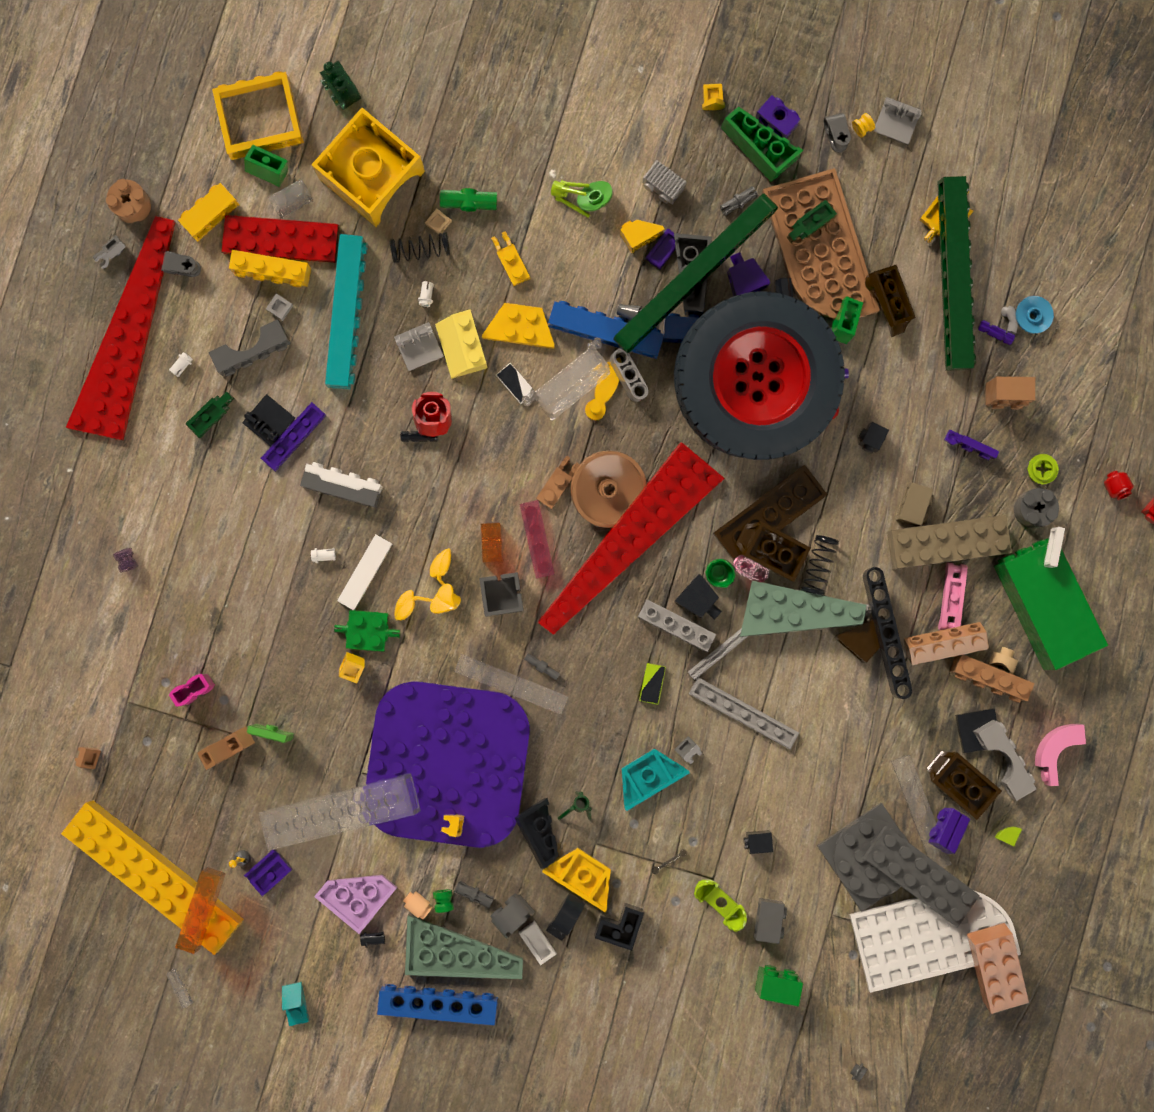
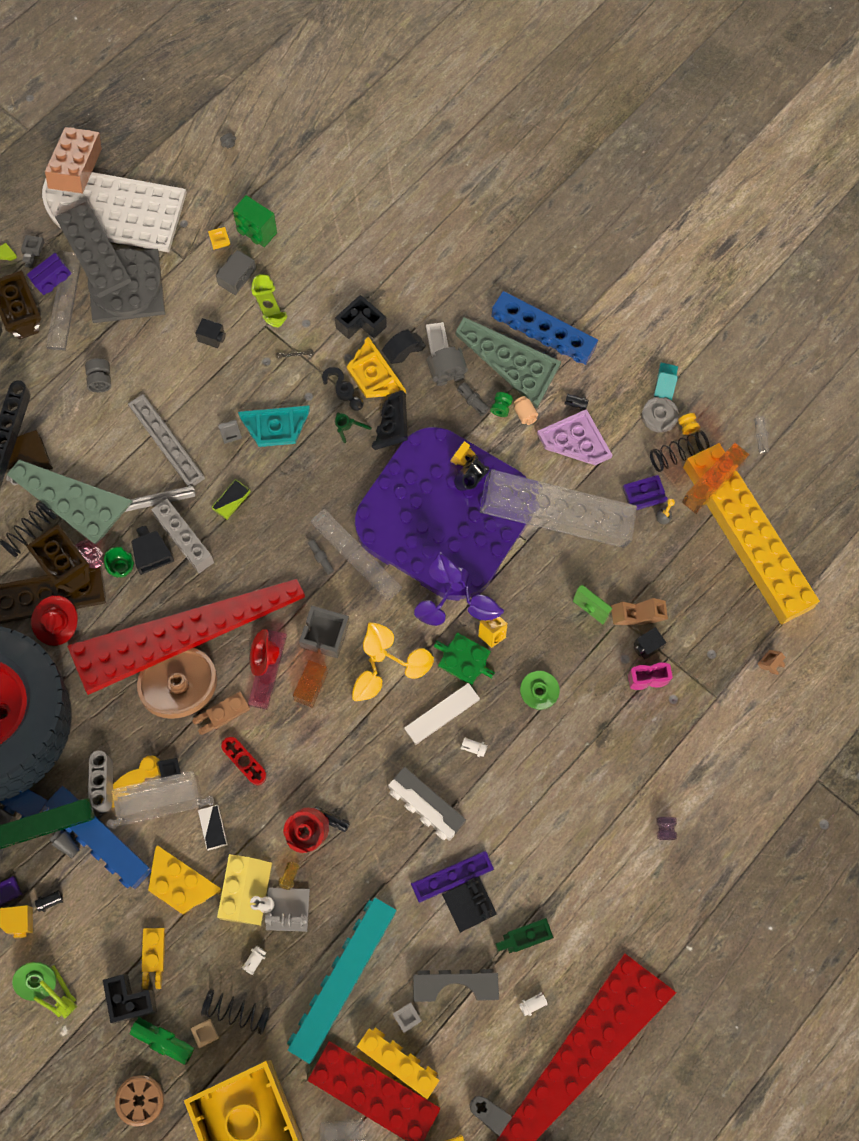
camera: 155 degrees left, 15 degrees down
(205, 722) = (649, 643): none -> black brick
(254, 966) = (688, 423): none -> yellow wheel
(264, 911) = (660, 458): none -> black piece
(277, 629) = (543, 681): none -> bright green dish
(287, 964) = (660, 414): none -> light grey tile
(399, 693) = (445, 571): none -> dark purple plant
(430, 372) = (289, 875): none -> clear yellow pin
(435, 806) = (473, 472): none -> black piece
(437, 340) = (263, 904): none -> white pin
(457, 140) = (139, 1114): none -> medium nougat wheel
(506, 440) = (238, 746): none -> red beam
(511, 210) = (123, 1004): none -> black brick
(546, 548) = (262, 653): none -> red hat
(576, 412) = (168, 767): none -> black plate
(601, 845) = (344, 389): none -> black piece
(619, 262) = (48, 901): none -> black pin
(748, 495) = (54, 620): none -> red hat
(807, 953) = (219, 238): none -> yellow plate
(842, 747) = (98, 375): none -> dark grey wheel
(984, 853) = (31, 247): none -> dark grey plate

